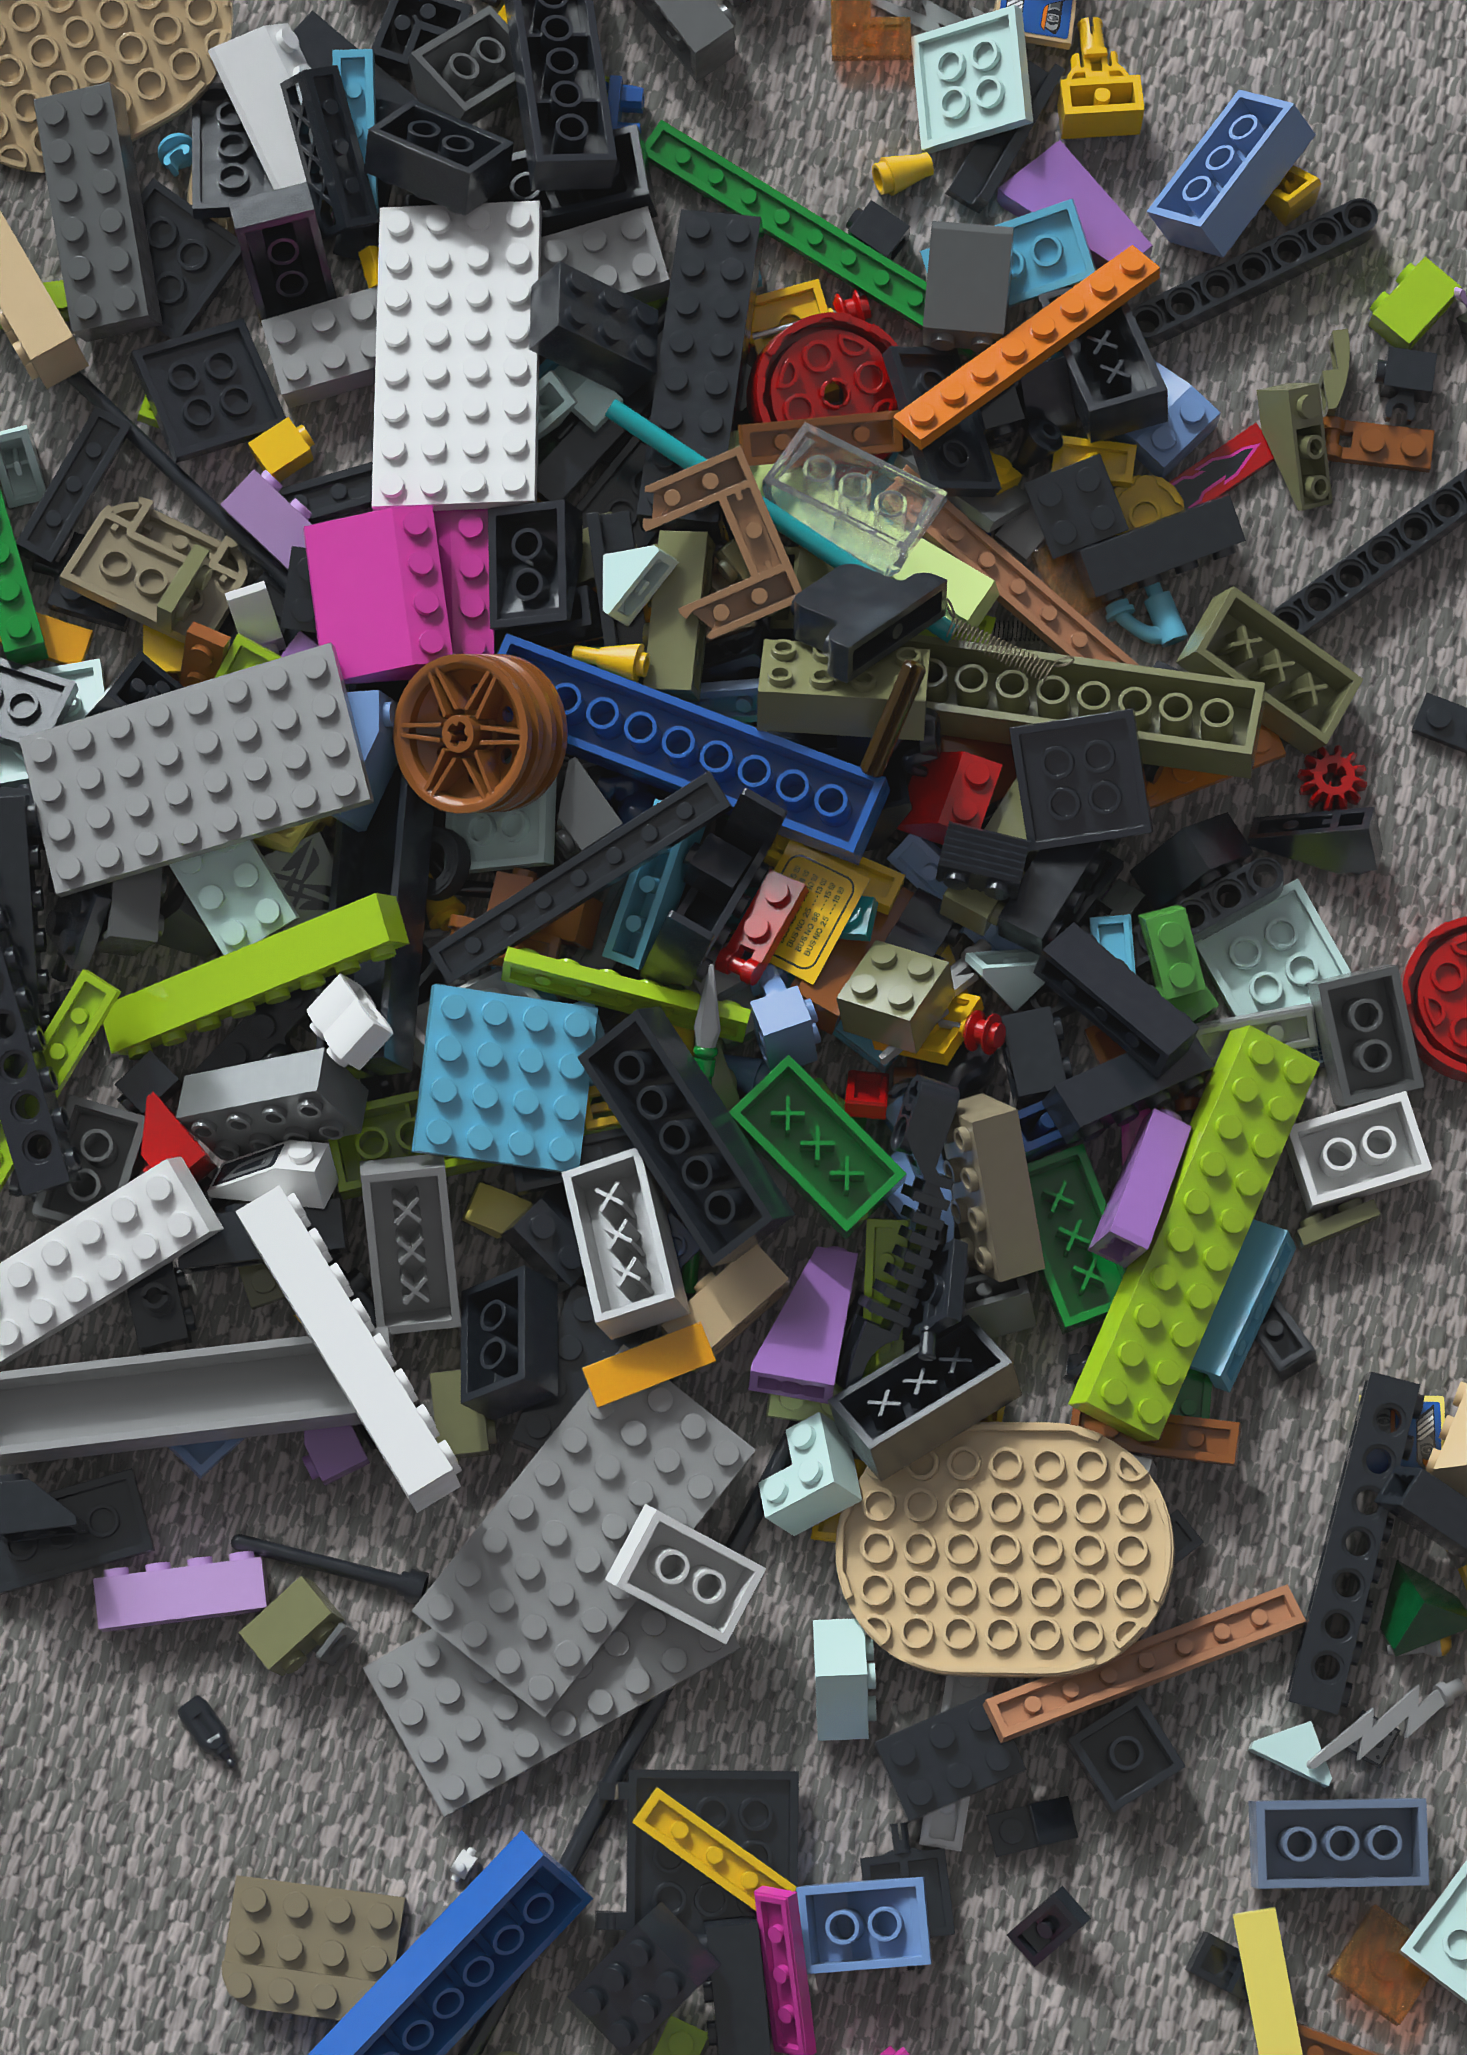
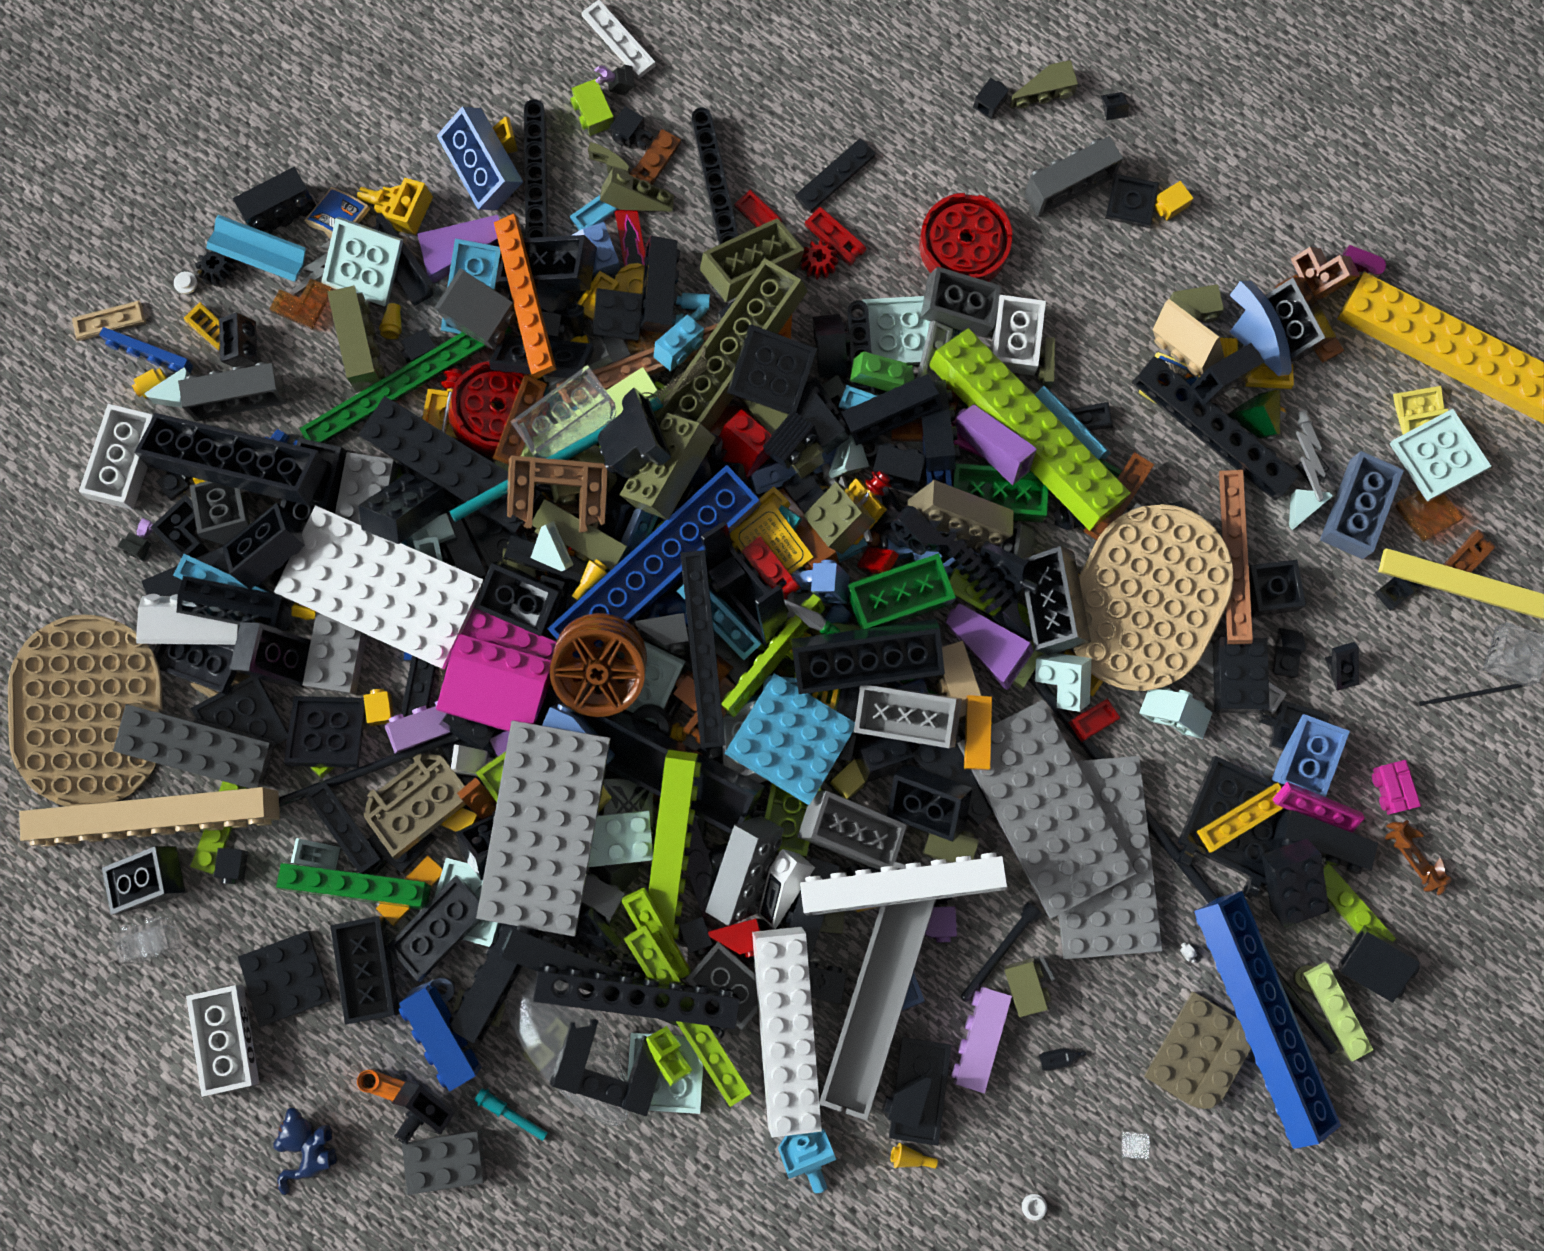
camera: 70 degrees left, 0 degrees up
(124, 1904) = (1135, 1145): none -> clear slope
(140, 985) = (644, 912): none -> lime plate
(175, 152) = (181, 690): medium azure plate -> none
(177, 599) = (430, 784): olive plate -> none
(348, 1022) = (726, 805): white brick -> none
(466, 1517) = (1015, 875): none -> clear smoke tile
(685, 1574) = (1097, 763): white brick -> none
(784, 1563) = (1094, 720): none -> red tile
(842, 131) = (356, 337): none -> olive brick
(893, 718) = (700, 443): dark brown axle -> none
(1070, 620) = (678, 343): none -> medium azure brick
(1231, 391) = (592, 214): none -> medium azure tile
(1324, 839) = (848, 277): black slope -> none
(1370, 644) = (755, 209): none -> red tile
(1391, 779) = (832, 232): none -> red plate

